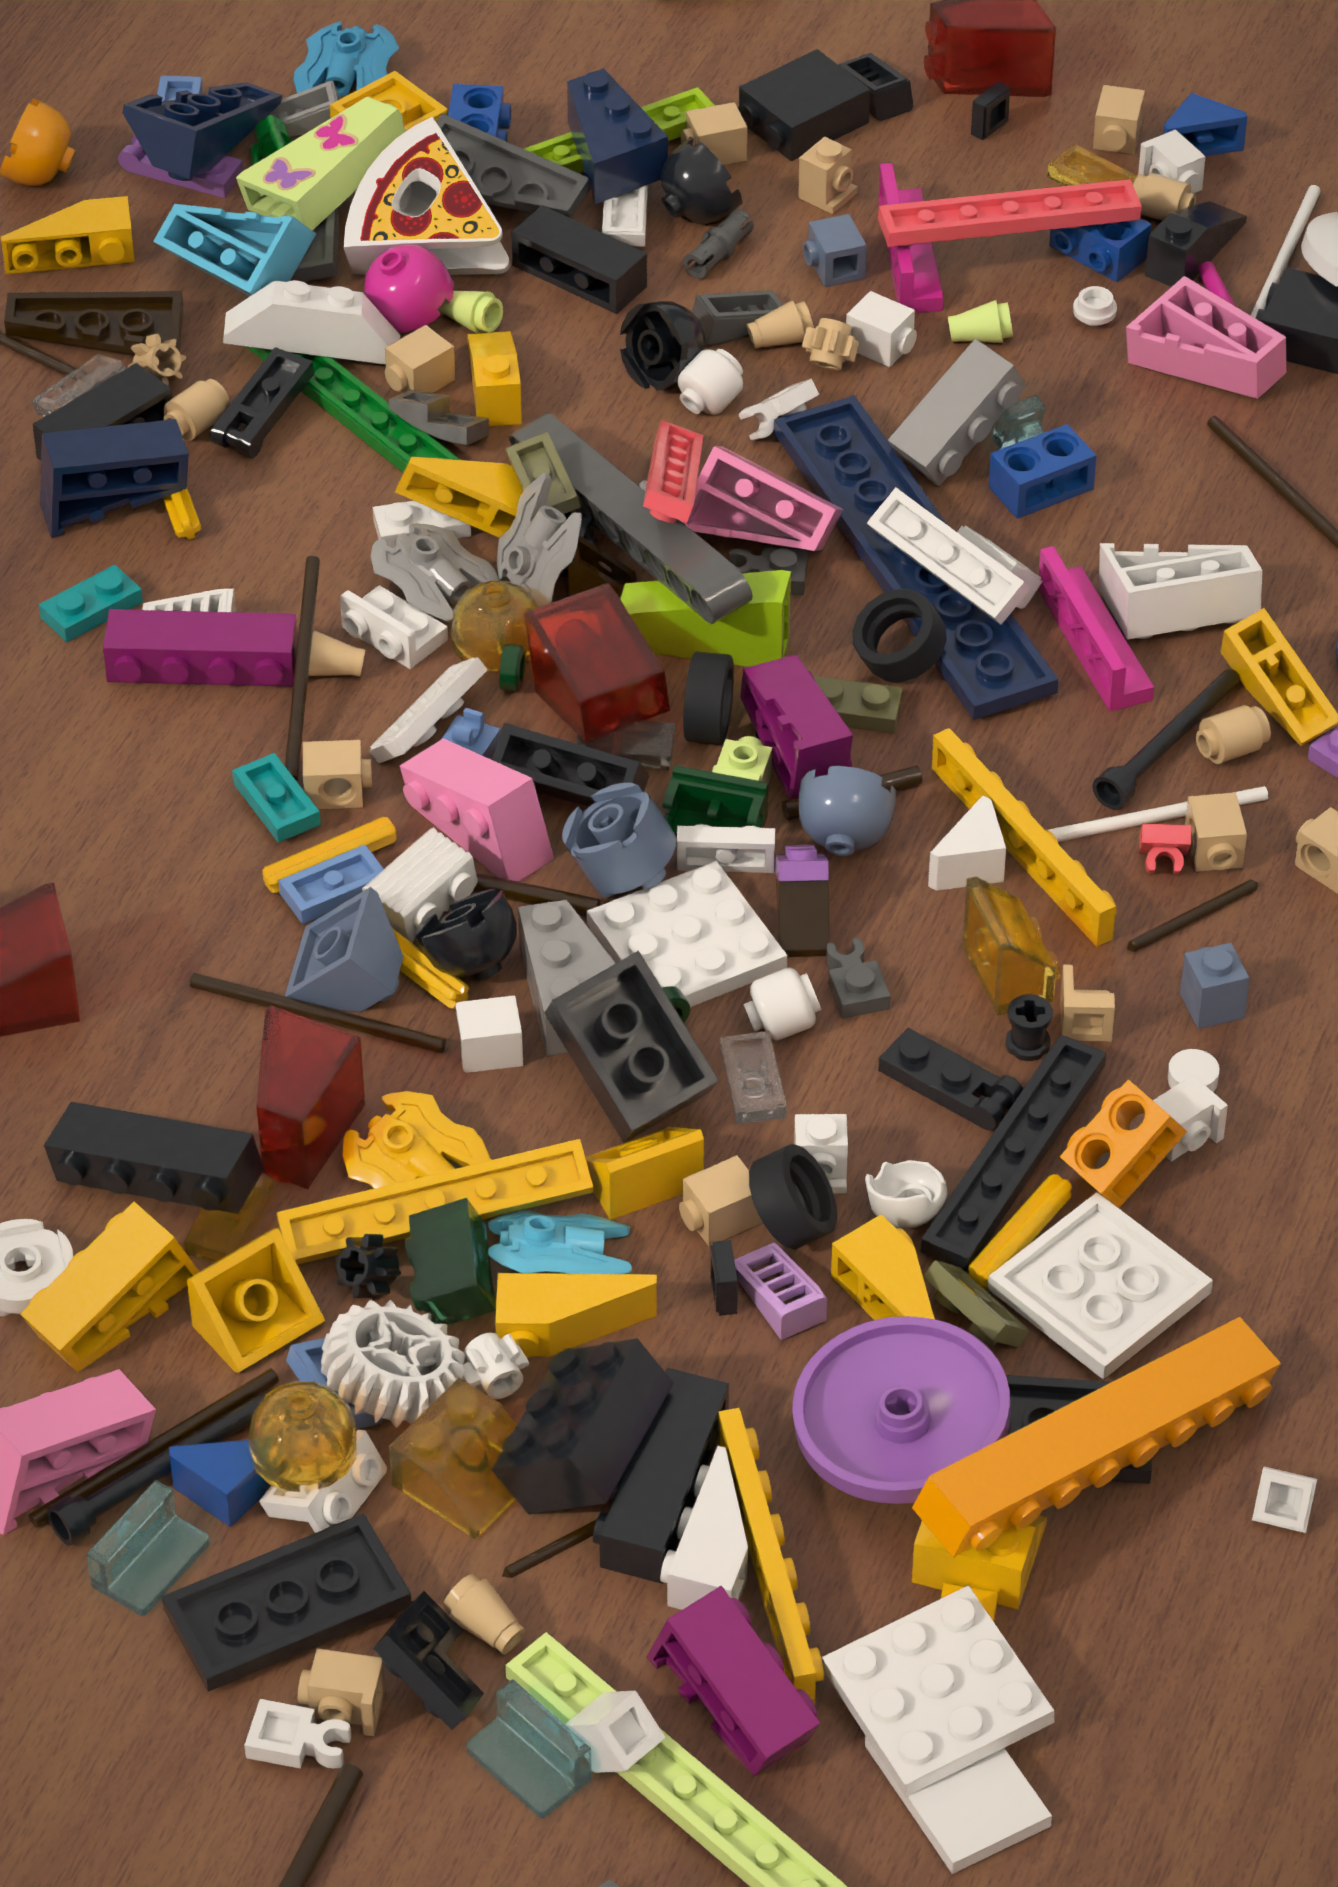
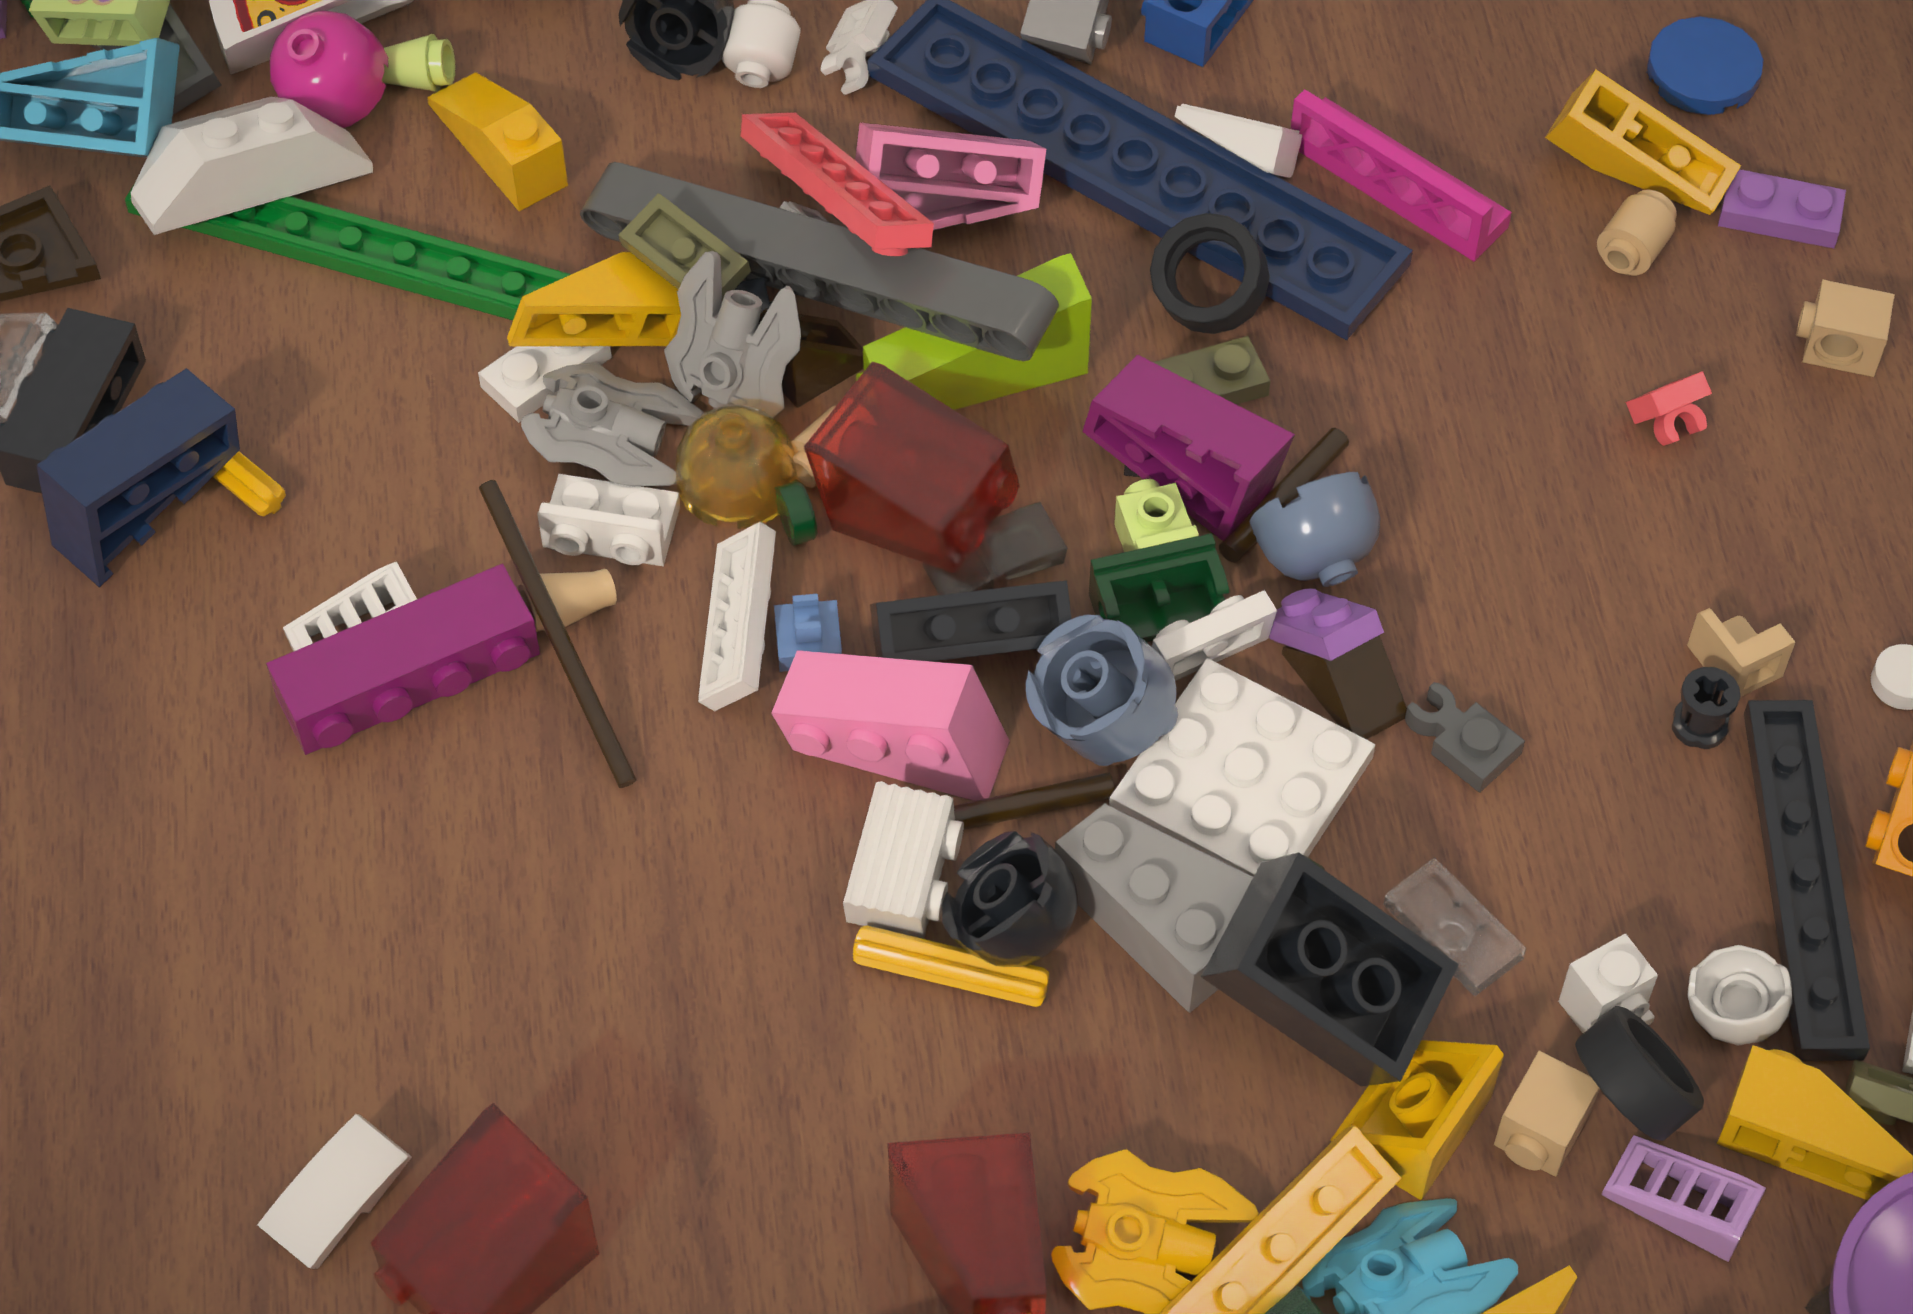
camera: 30 degrees left, 10 degrees up
(89, 603) = (215, 657): teal plate -> none
(161, 356) = (84, 287): tan gear -> none
(197, 407) = (173, 334): tan brick -> none
(262, 402) = (250, 290): black plate -> none
(276, 797) = (636, 821): teal plate -> none
(318, 1013) = (884, 1094): dark brown axle -> none
(329, 883) = (788, 908): medium blue plate -> none
(335, 773) = (687, 757): tan brick -> none
(348, 957) = (878, 1004): sand blue slope -> none
(374, 835) = (750, 869): yellow axle -> none
(420, 362) = (405, 160): tan brick -> none
(432, 415) = (459, 221): flat silver slope -> none
(490, 1034) = (1125, 1021): white panel -> none
(708, 697) = (1062, 452): black tyre -> none
(724, 1277) = (1625, 1218): black tile -> none
(772, 560) = (998, 244): dark grey plate -> none
(782, 1004) = (1422, 813): white head -> none
(948, 556) = (1198, 150): white plate -> none
(949, 1079) = (1662, 816): black plate -> none
(969, 850) = (1482, 506): white slope -> none
(1006, 946) = (1615, 624): clear yellow slope -> none
(1021, 1228) = (1882, 975): yellow axle -> none
(1025, 838) = (1519, 465): yellow plate -> none
(1118, 783) = (1563, 350): black piece -> none
(1144, 817) = (1607, 380): white axle -> none
(1179, 590) = (1457, 84): white wedge -> none
(1192, 915) = (1750, 476): dark brown axle -> none
(1214, 985) = (1857, 556): sand blue brick -> none
(1216, 832) = (1723, 355): tan brick -> none

